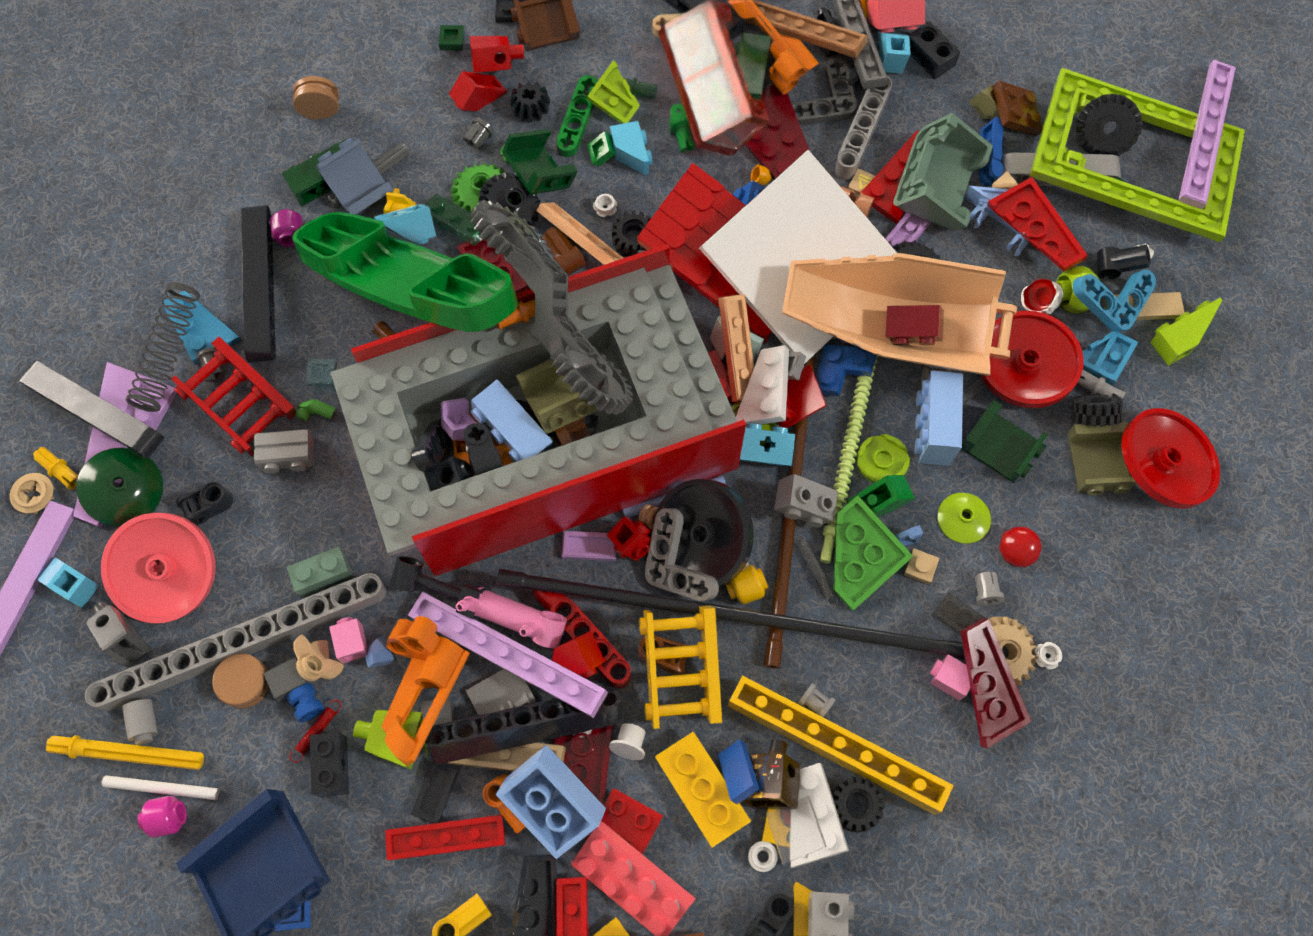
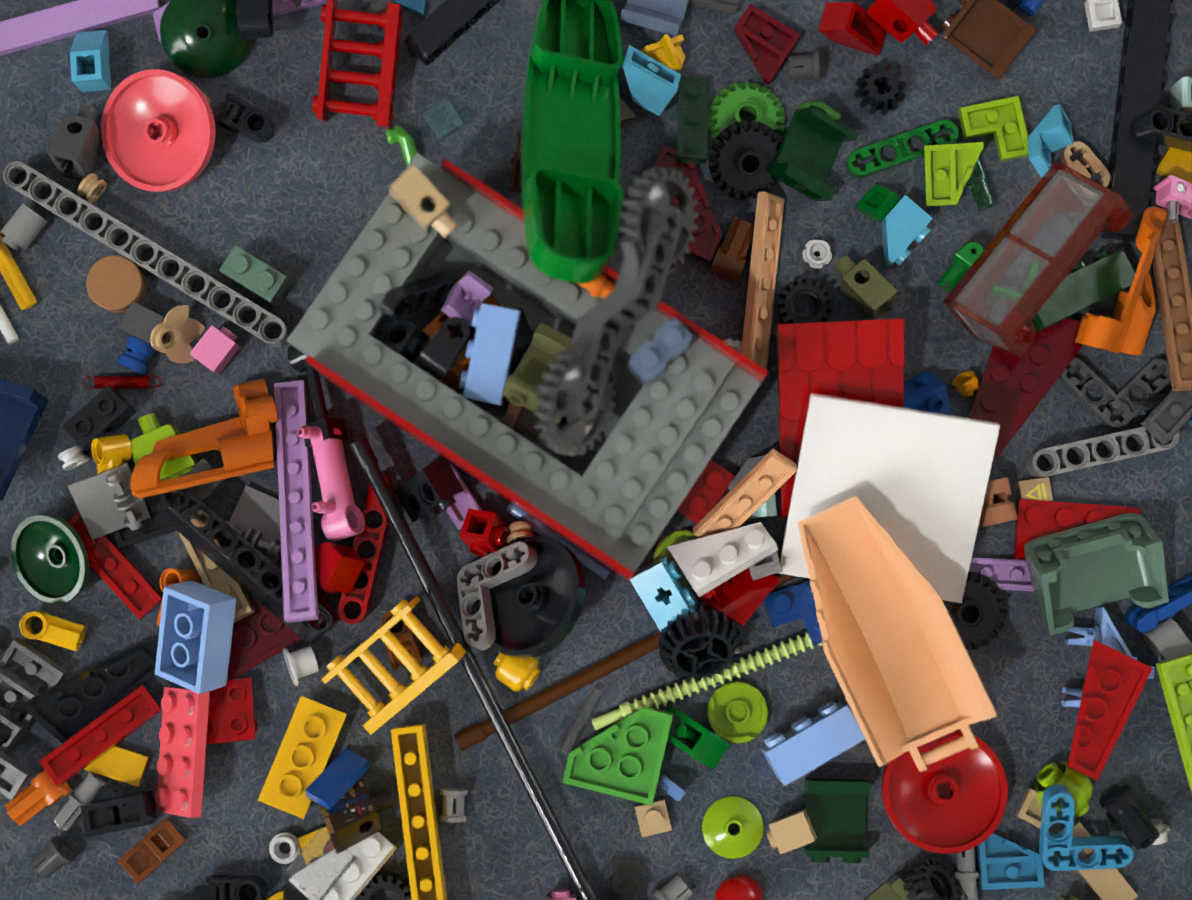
camera: 55 degrees right, 15 degrees up
(155, 647) = (91, 188): none -> tan bush
(284, 450) = (344, 149): light grey brick -> none
(341, 808) = (73, 457): none -> white bush
(365, 775) = (111, 451): none -> yellow piece
(367, 380) = (412, 191): none -> tan torso
(378, 653) = (223, 383): medium blue tile -> none
(397, 799) = (108, 502): none -> light grey hinge
(400, 895) = (49, 558): none -> dark green dish
(441, 146) = (765, 41): none -> dark red wing
(572, 552) = (429, 491): none -> black brick
(600, 301) = (667, 346): none -> sand blue brick
(606, 49) = (1002, 119): none -> lime plate
(639, 30) = (1050, 135): none -> medium azure slope
(650, 186) = (866, 288): none -> olive torso
(805, 500) = (635, 670): light grey brick -> none
(818, 444) = (700, 644): none -> black gear
(914, 323) = (891, 655): dark red brick -> none
(994, 476) = (791, 832): none -> tan brick
(1006, 181) = (1137, 643): tan slope -> none
(1042, 296) = (1026, 759): red hair -> none
(1078, 319) = (1029, 808): none -> tan plate

